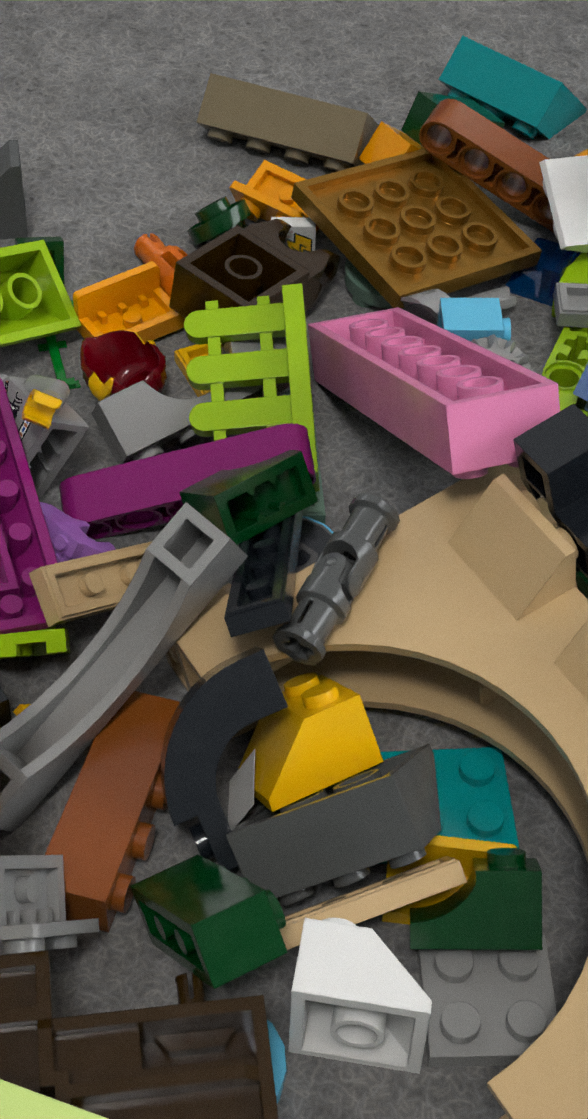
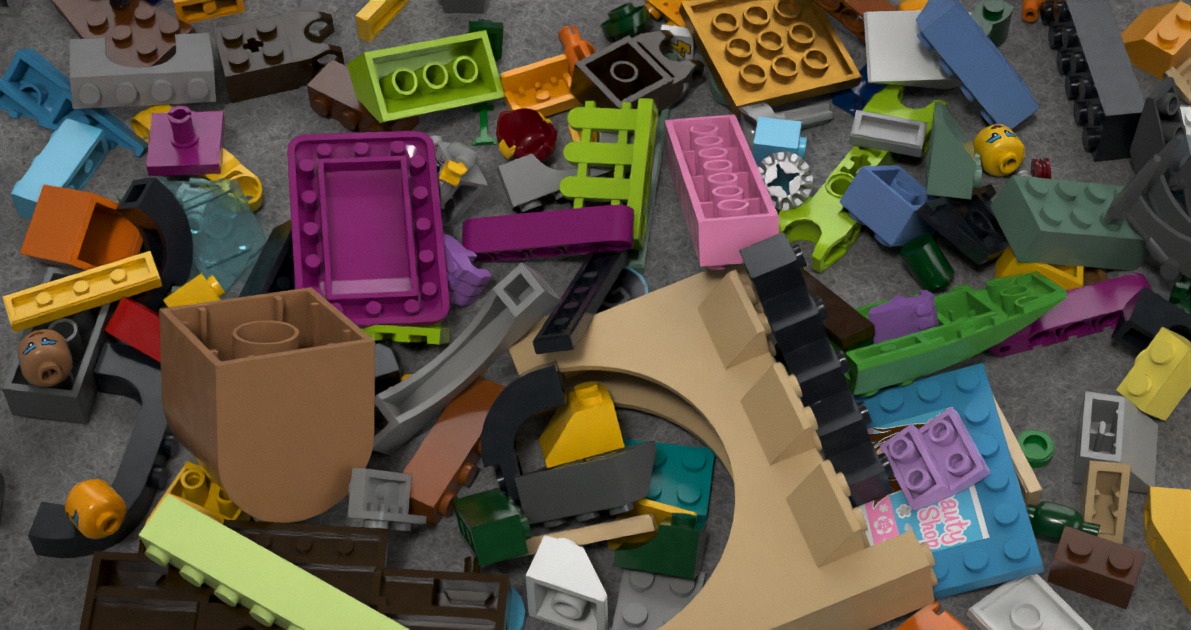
camera: 15 degrees right, 5 degrees up
(85, 584) = (459, 299): tan tile -> none
(241, 791) = (536, 451): white sticker -> none
(254, 496) = (580, 256): dark green arch -> none
(336, 579) = (615, 323): dark grey piece -> none

